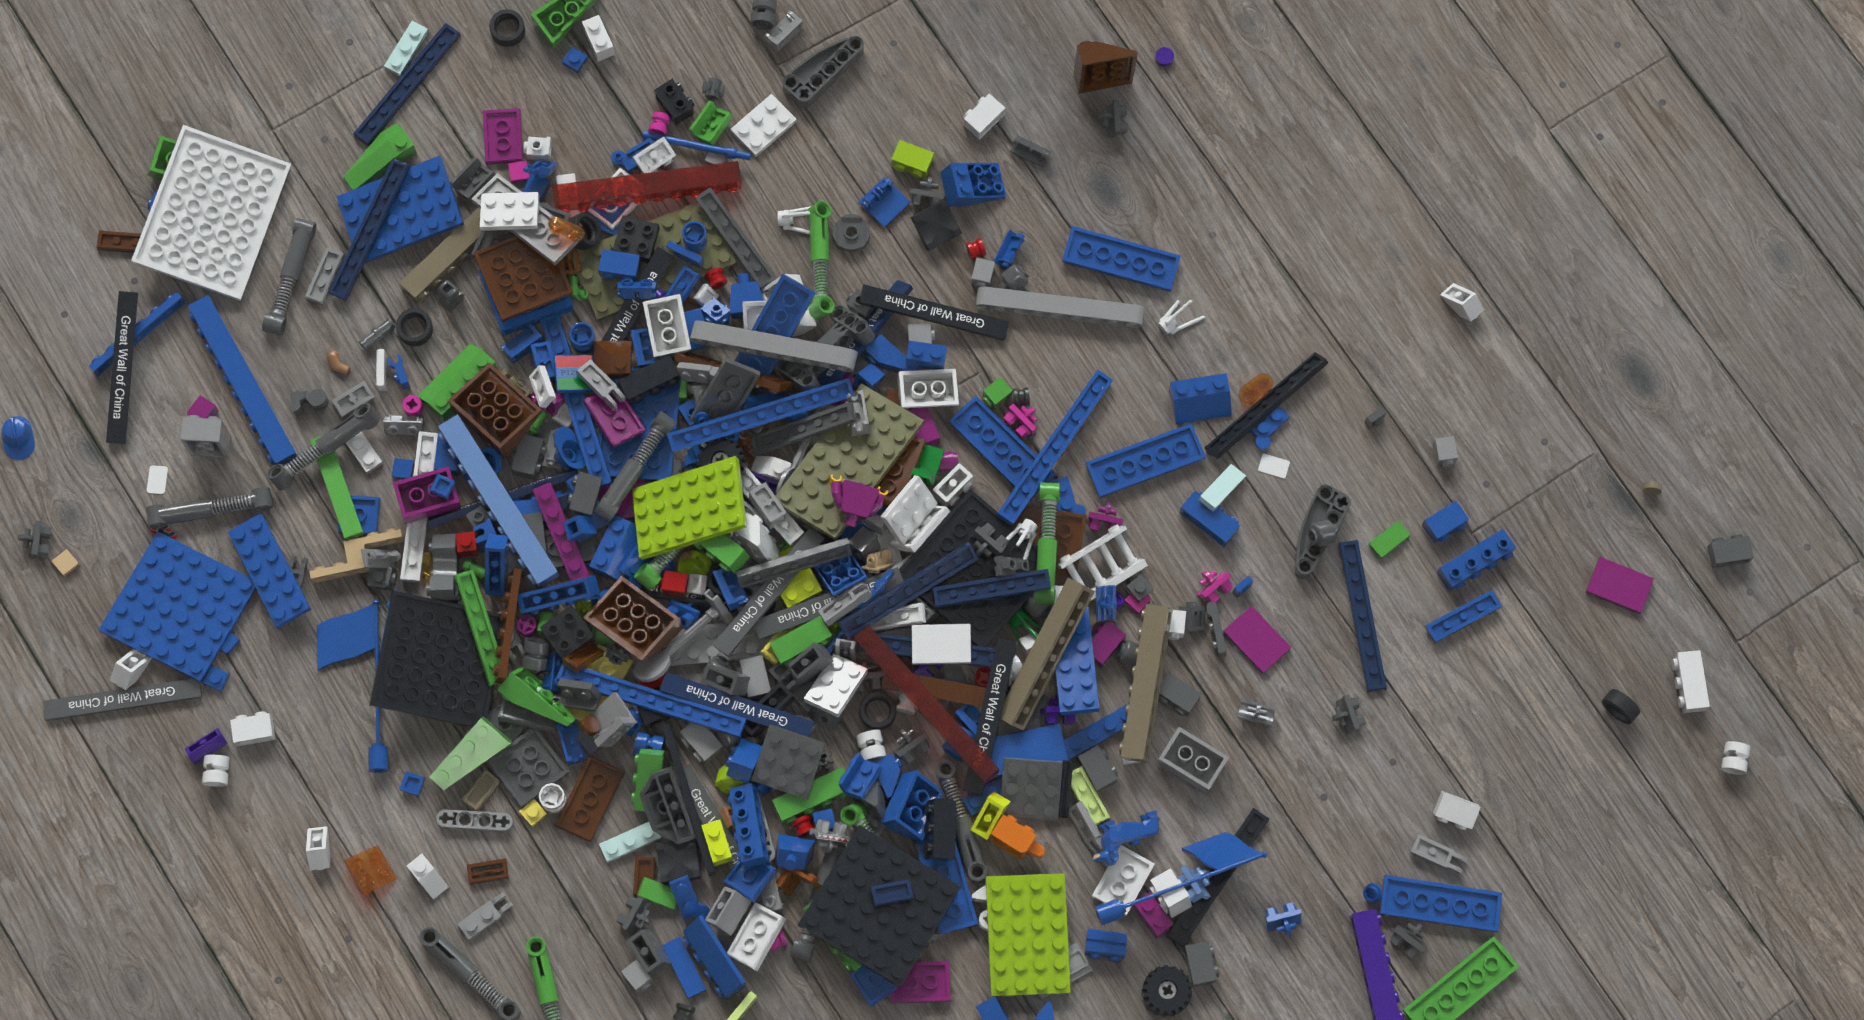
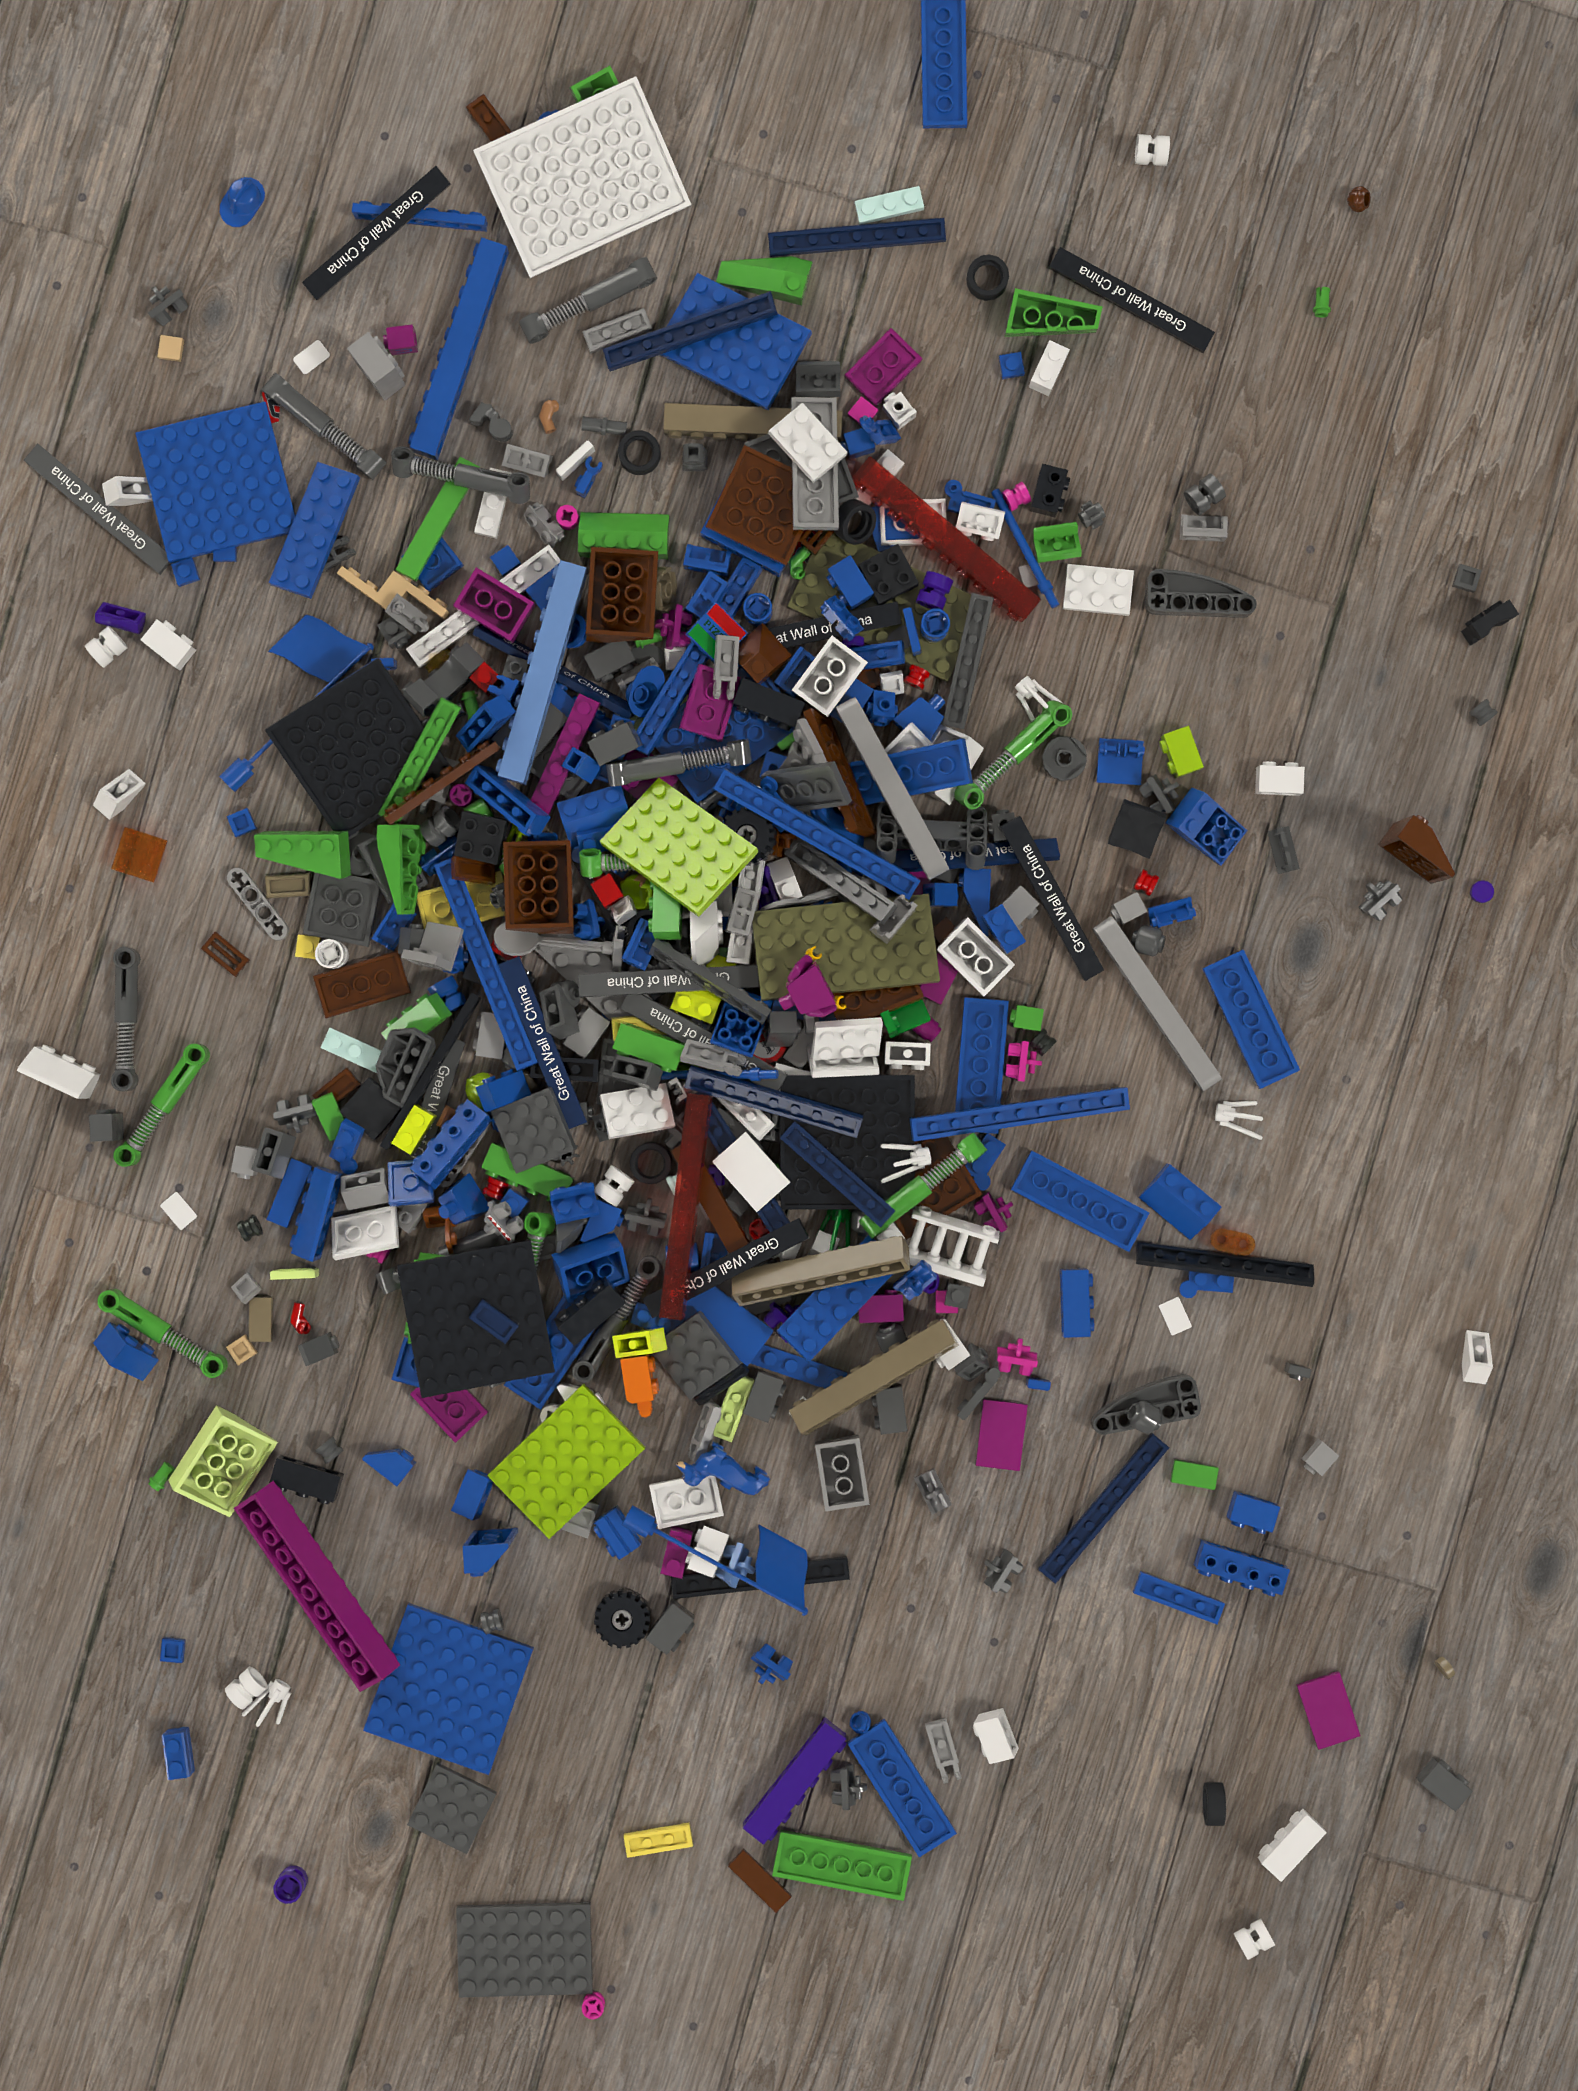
camera: 50 degrees right, 15 degrees up
(427, 876) = (175, 908): white slope -> none
(442, 486) = (510, 614): blue tile -> none
(484, 917) = (183, 986): light grey hinge -> none
(542, 386) = (678, 617): white plate -> none
(565, 228) = (834, 518): clear orange plate -> none
(579, 695) = (436, 899): dark grey bracket -> none
(590, 725) = (416, 932): reddish brown tile -> none
(671, 216) = (934, 590): none -> dark purple wheel
(879, 561) = (779, 1052): tan hinge -> none
(995, 546) = (879, 1145): dark grey hips -> none
(1010, 566) = (872, 1174): dark grey hips -> none
(1222, 487) = (1112, 1290): light aqua tile -> none

